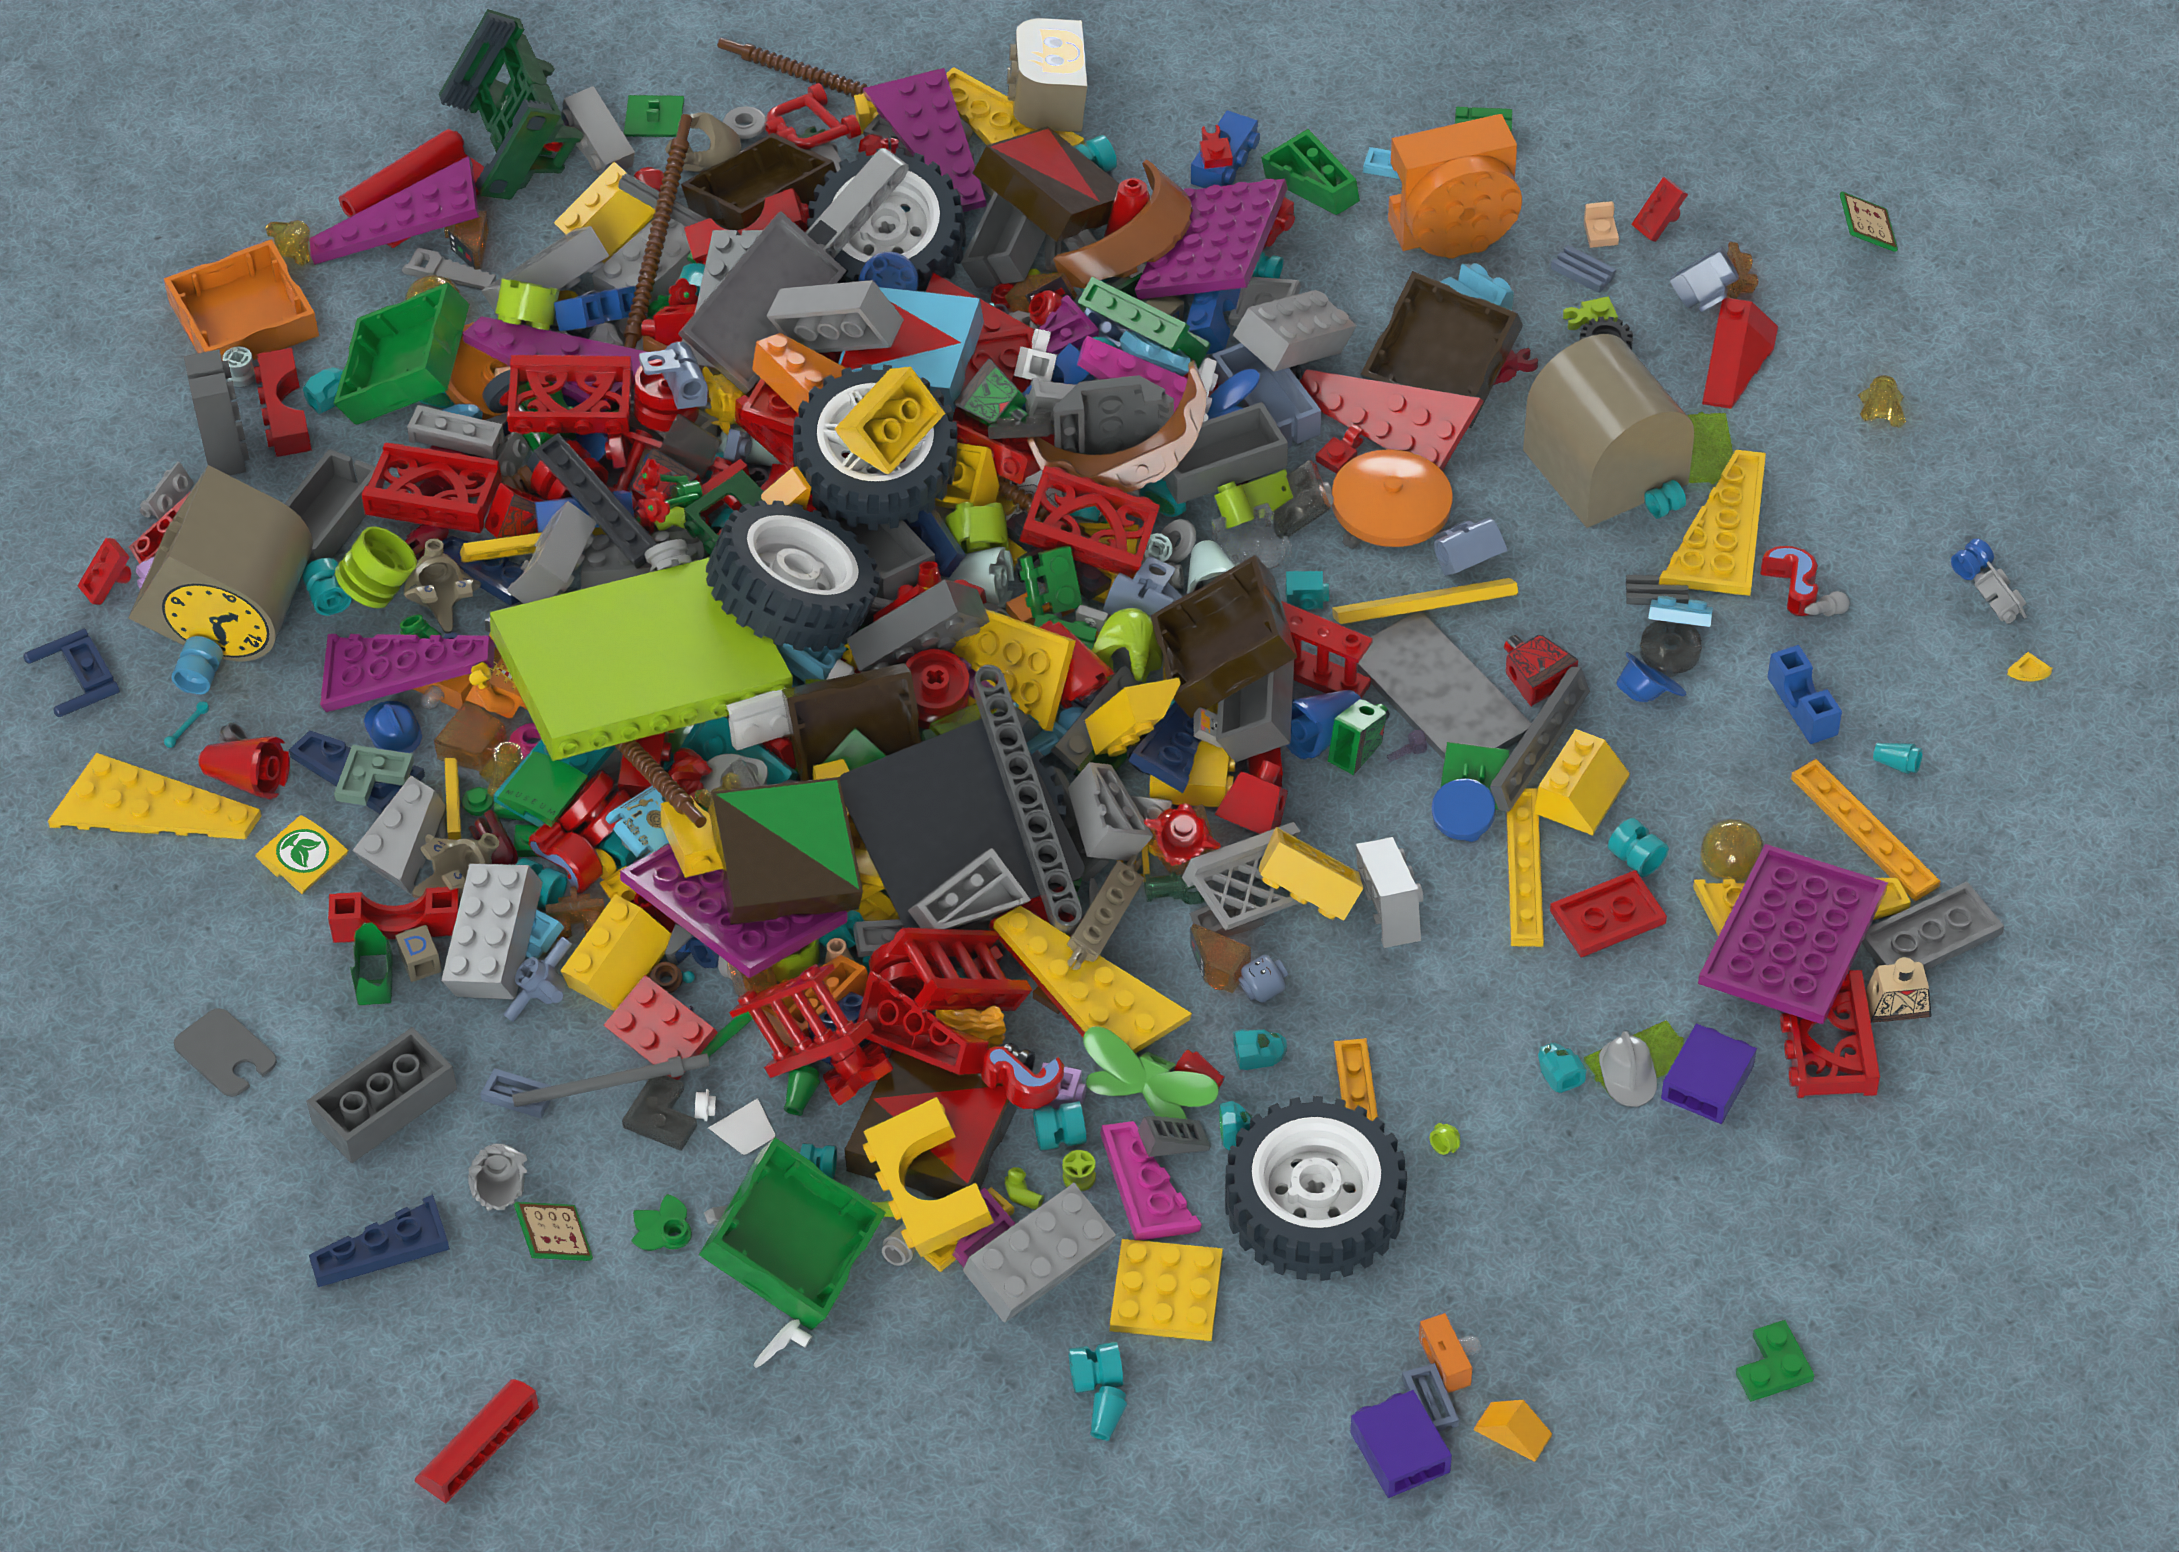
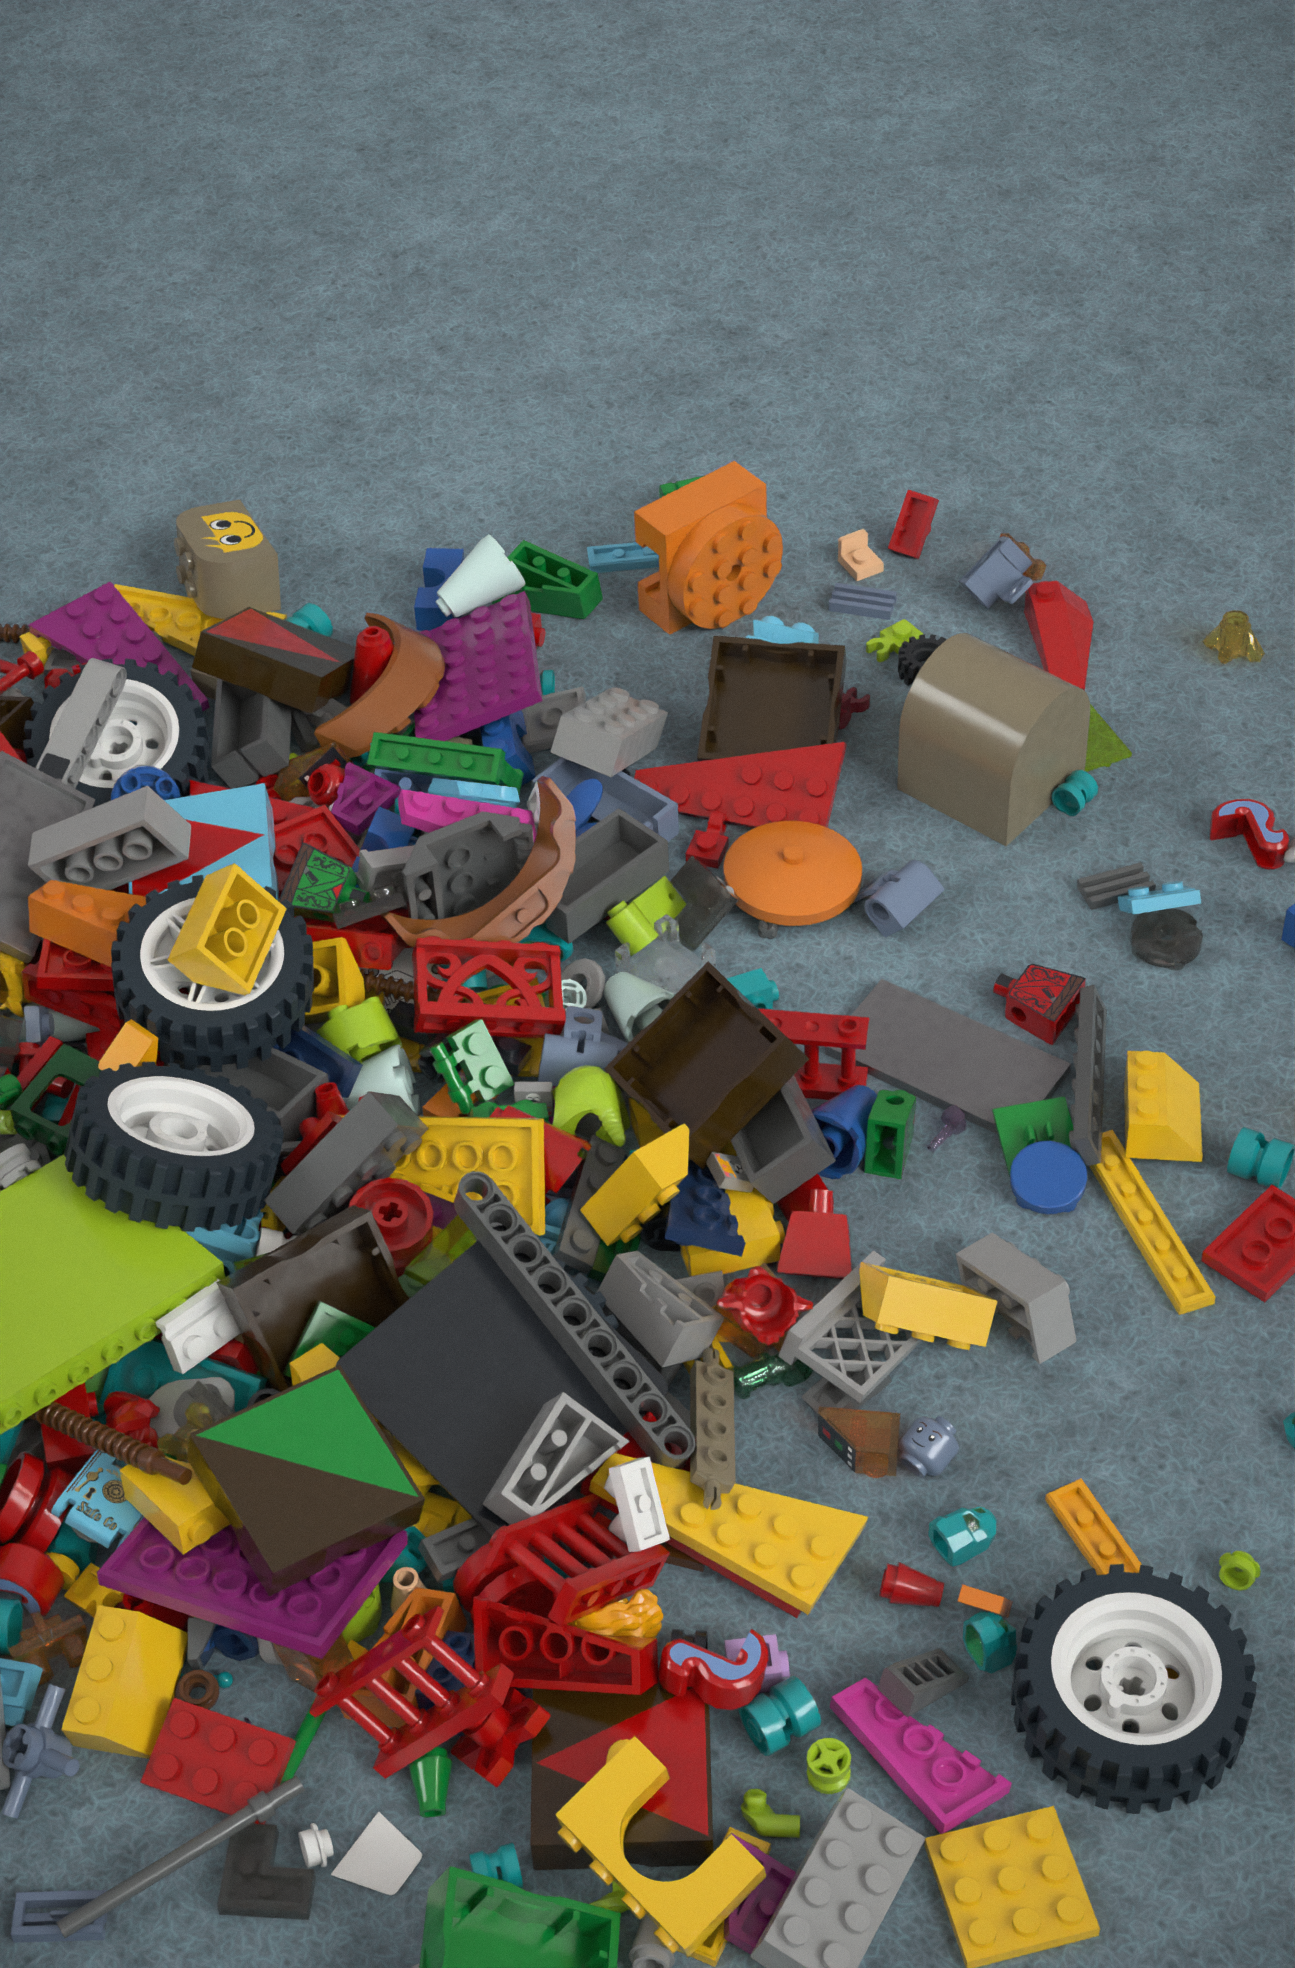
camera: 20 degrees left, 5 degrees down
(1018, 947) = (639, 1505): none -> white tile
(1035, 361) = (349, 834): white brick -> none
(1129, 1075) = (837, 1616): bright green piece -> none
(1215, 150) = (428, 583): red plate -> none
(1242, 1097) = (985, 1601): none -> orange tile
(1250, 157) = (479, 579): none -> light aqua cone
(1425, 601) = (884, 966): yellow tile -> none
(1644, 682) = (1160, 983): blue piece -> none
(1722, 538) = (1153, 813): yellow wing -> none
(1868, 221) = (1118, 484): piece -> none

